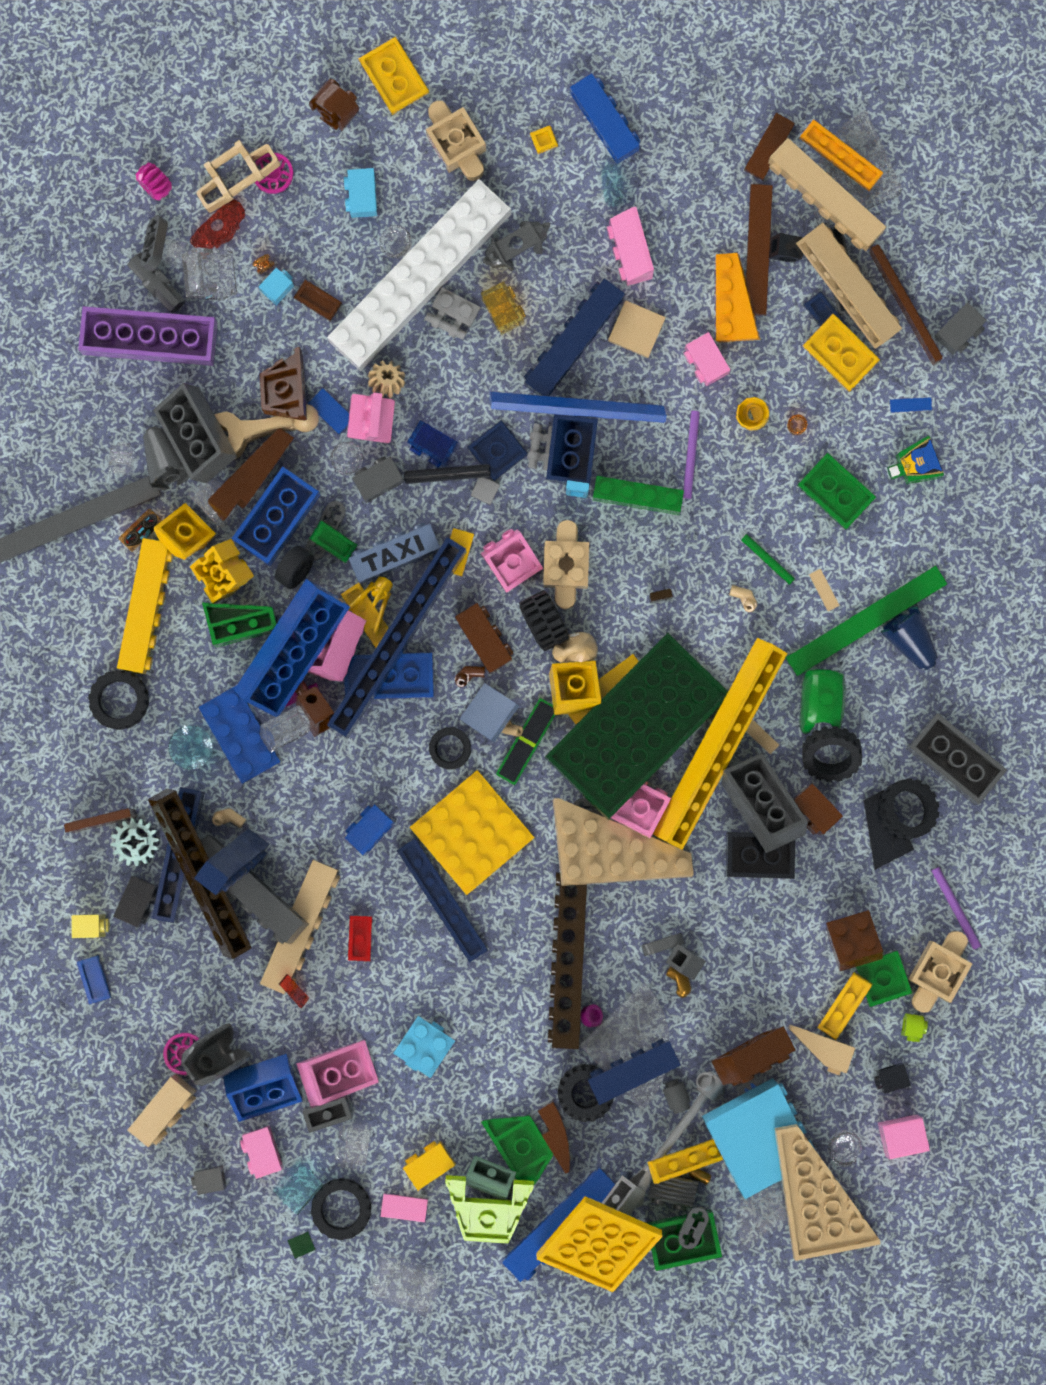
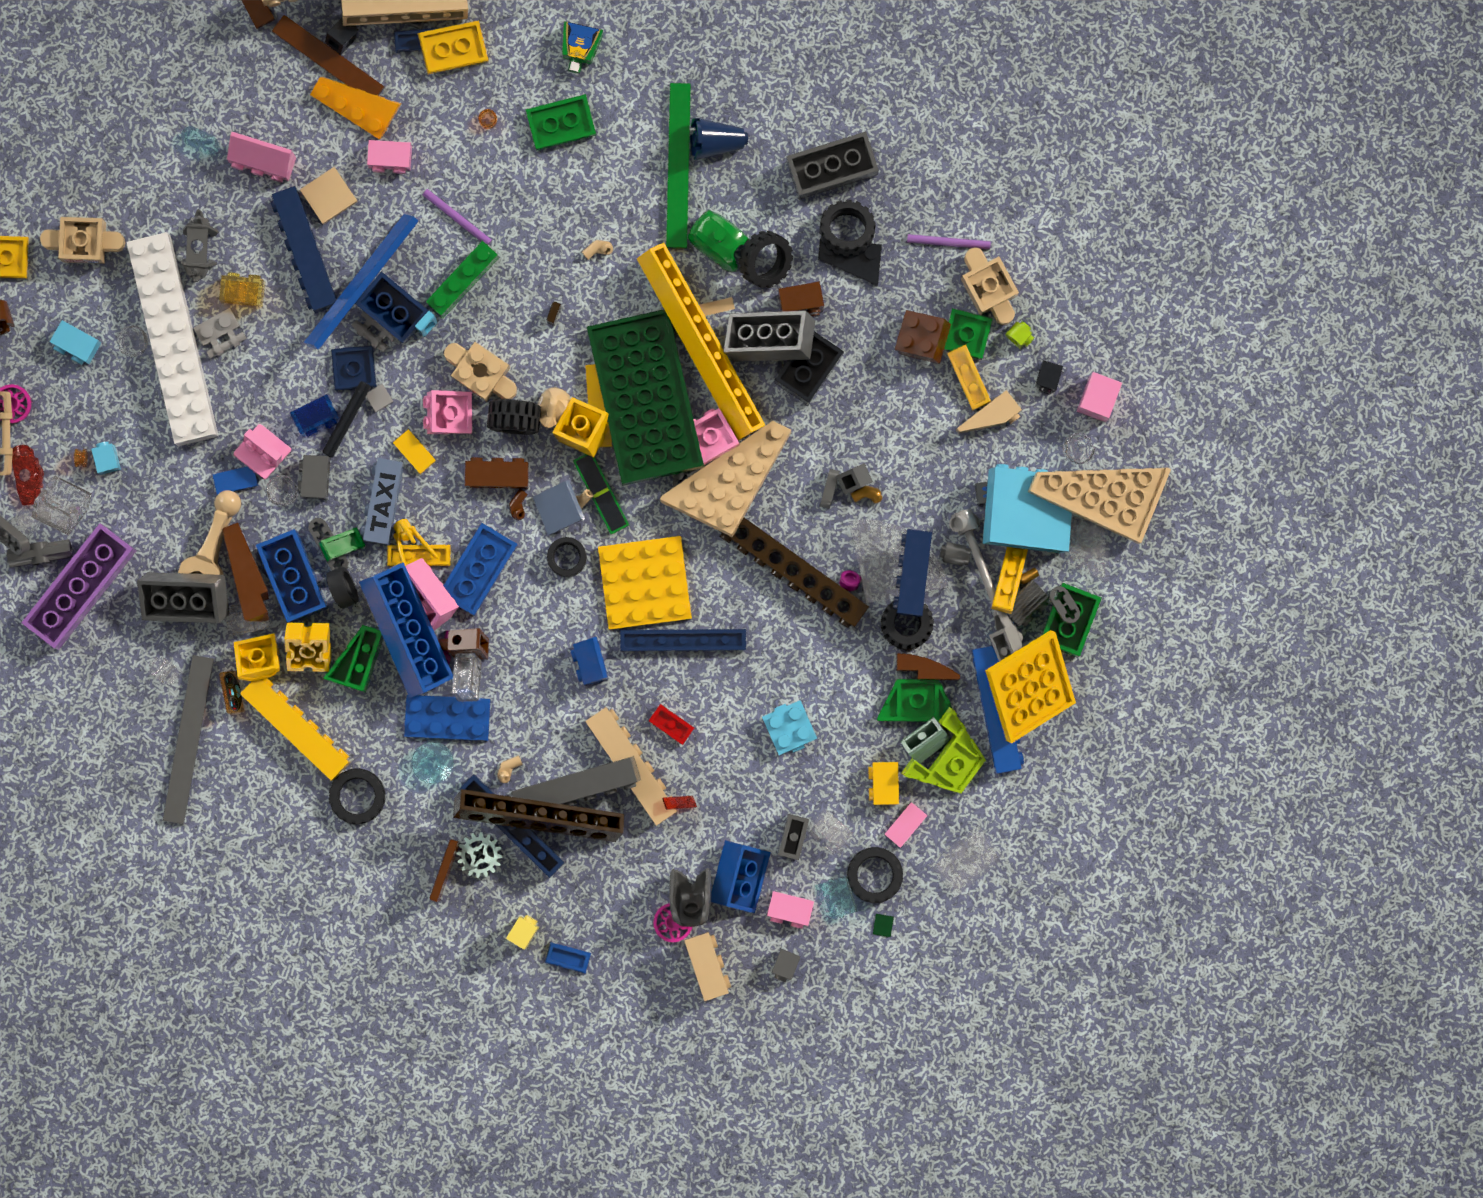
camera: 65 degrees left, 0 degrees up
(136, 902) = (527, 883): black brick -> none
(162, 460) = (187, 637): dark grey cone -> none
(232, 862) = (547, 780): dark blue brick -> none
(284, 388) = (193, 504): reddish brown wing -> none
(317, 300) = (138, 433): reddish brown tile -> none
(337, 1073) = (766, 810): bright pink slope -> none
(386, 379) = (238, 418): tan gear -> none
(397, 638) = (452, 541): dark blue brick -> none
(543, 139) = (127, 171): yellow tile -> none
(604, 118) = (142, 111): blue brick -> none
(754, 1056) = (962, 472): reddish brown brick -> none
(759, 412) = (456, 141): yellow hair -> none
(770, 561) = (580, 210): green bar -> none
(824, 590) = (632, 182): tan window -> none
(910, 404) = (530, 20): blue window -> none

